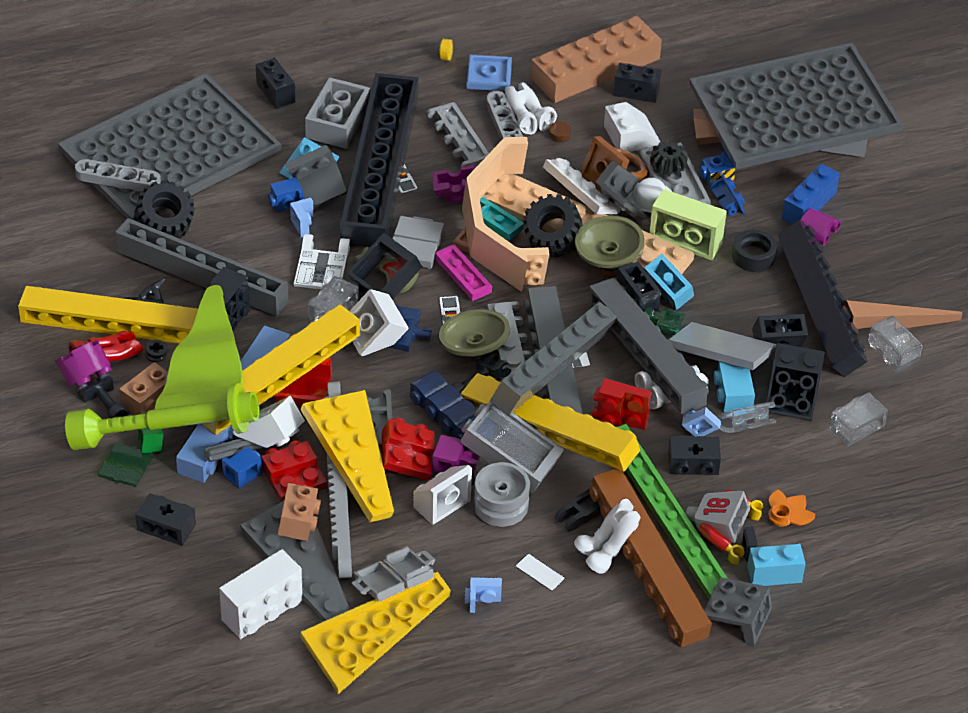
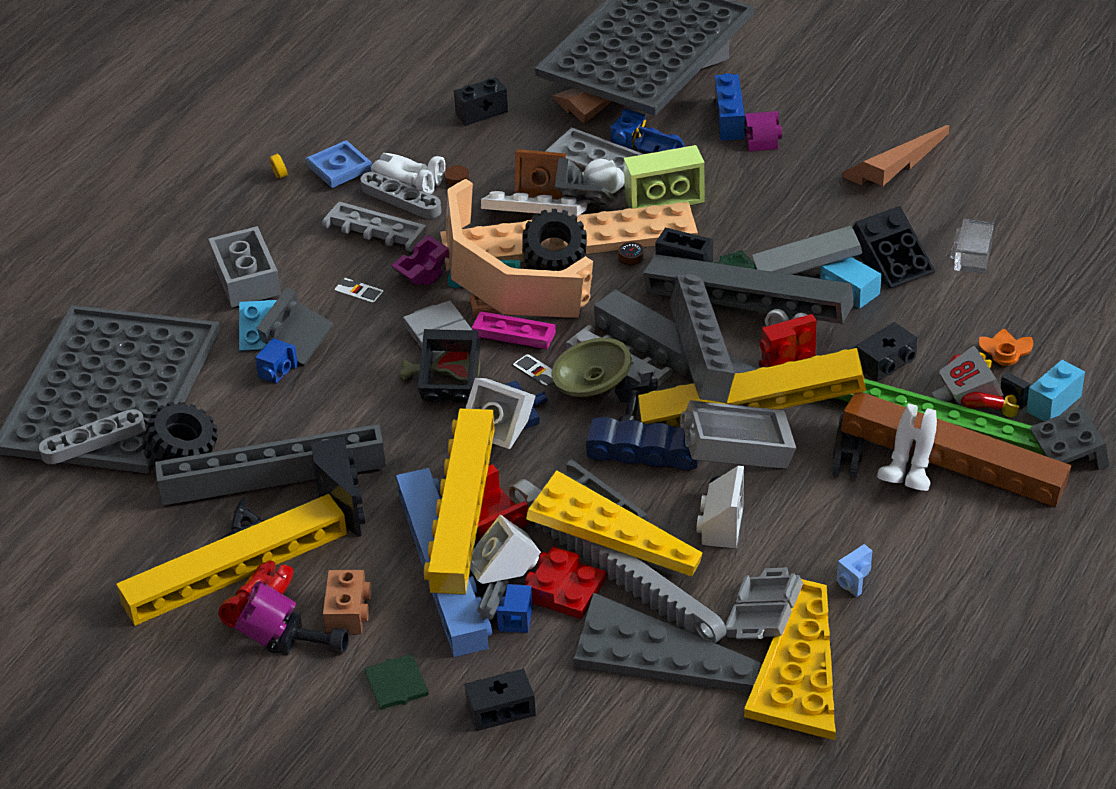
camera: 35 degrees left, 5 degrees down
(150, 440) = (396, 639): green piece -> none
(156, 344) = (306, 572): black bush -> none
(199, 389) = (409, 553): lime flag -> none
(261, 594) = (676, 699): white brick -> none
(275, 83) = (151, 276): black brick -> none
(298, 512) = (623, 607): nougat brick -> none
(301, 215) = (310, 371): light blue bracket -> none
(320, 266) = (378, 402): white flag -> none
(332, 294) = (429, 422): clear brick -> none
(379, 159) = (334, 284): black brick -> none
(407, 448) = (648, 495): red plate -> none
(451, 454) = (689, 480): magenta brick -> none
(501, 494) = (775, 479): light grey wheel -> none
(540, 572) = (872, 525): white sticker -> none
(594, 59) = (421, 103): nougat brick -> none
(609, 241) = (621, 227): olive dish -> none
(629, 128) = (505, 137): white slope -> none
(668, 158) = (584, 141): pearl dark grey gear -> none
(670, 281) = (707, 226): medium azure brick -> none
(700, 422) = (862, 323): light blue bracket -> none
(739, 416) = (880, 301): clear piece -> none
(750, 262) = (734, 162): black tyre -> none
(781, 329) = (837, 213): black brick -> none
(823, 298) = (834, 172): black brick -> none
(895, 343) = (929, 175): clear brick -> none

